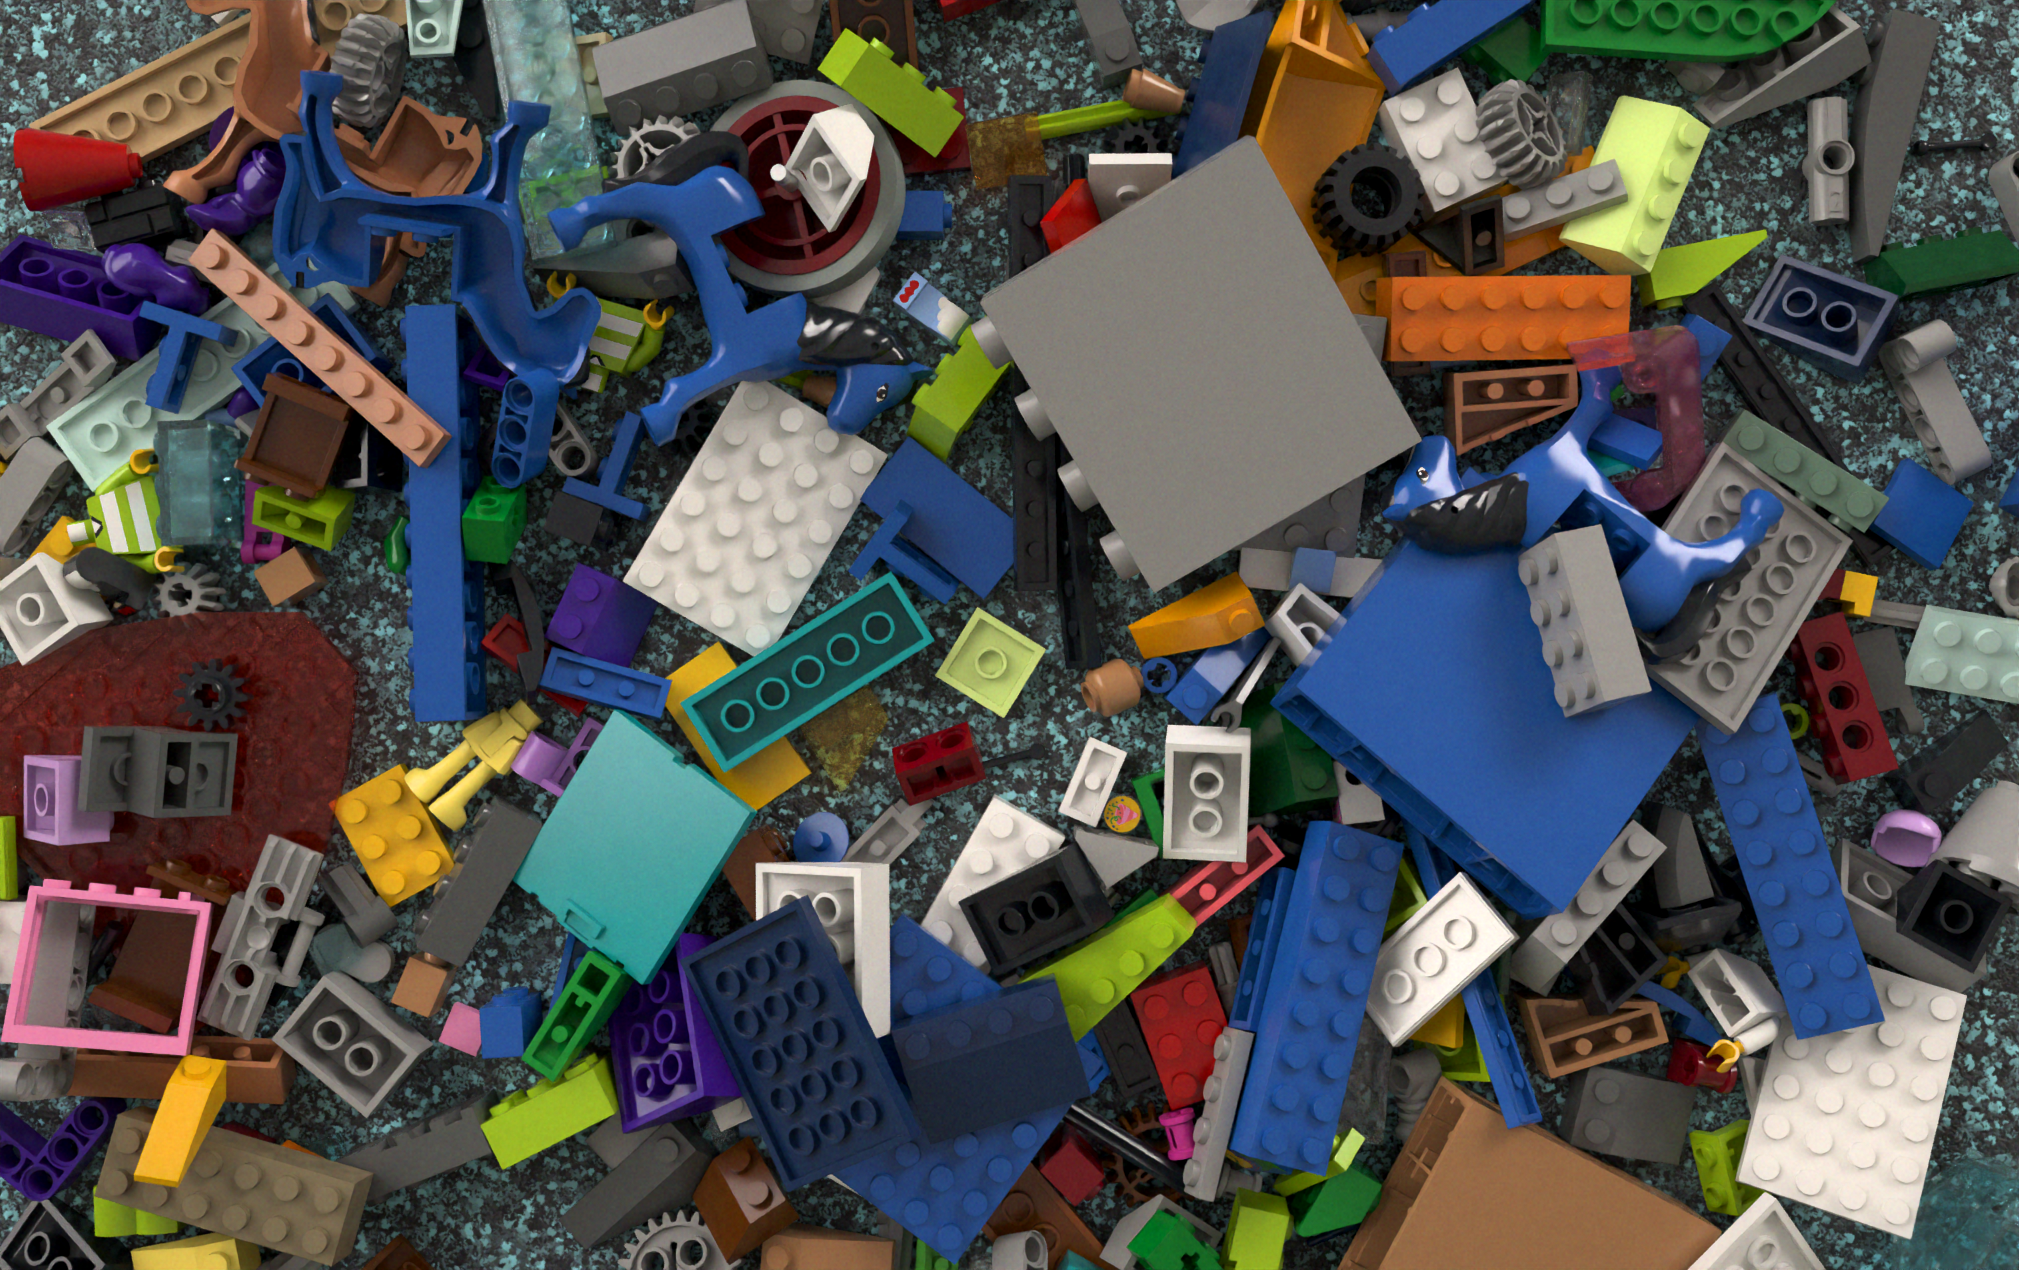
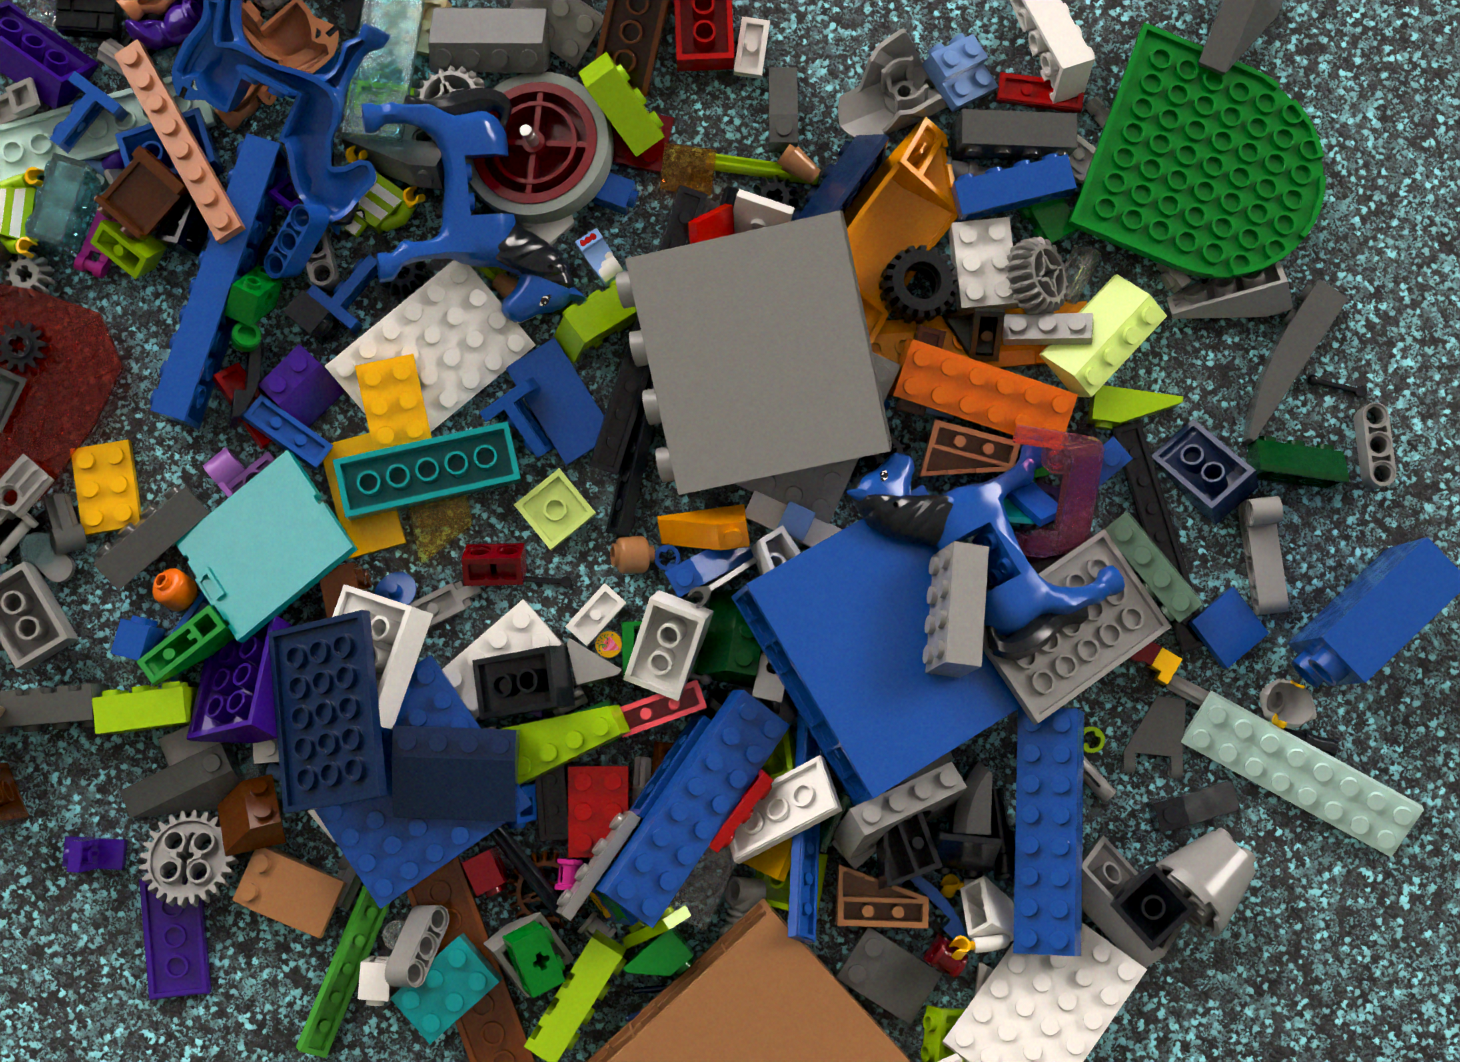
camera: 10 degrees right, 5 degrees down
(145, 273) = (82, 53): dark purple animal -> none
(291, 577) = (102, 288): medium nougat panel -> none
(395, 547) = (180, 292): green arm -> none
(424, 984) = (89, 593): medium nougat brick -> none
(463, 1029) = (102, 635): bright pink tile -> none
(495, 741) = (198, 445): light yellow piece -> none
(505, 580) = (246, 337): none -> green tile
(534, 940) = (174, 590): none -> orange head
(731, 597) = (393, 401): none -> yellow plate
(835, 161) = (566, 134): white slope -> none
(1394, 945) = (743, 811): none -> red plate
(1828, 136) = (1248, 349): light grey piece -> none
(1858, 711) = (1137, 690): dark red brick -> none
(1906, 838) = (1143, 846): lavender hair -> none

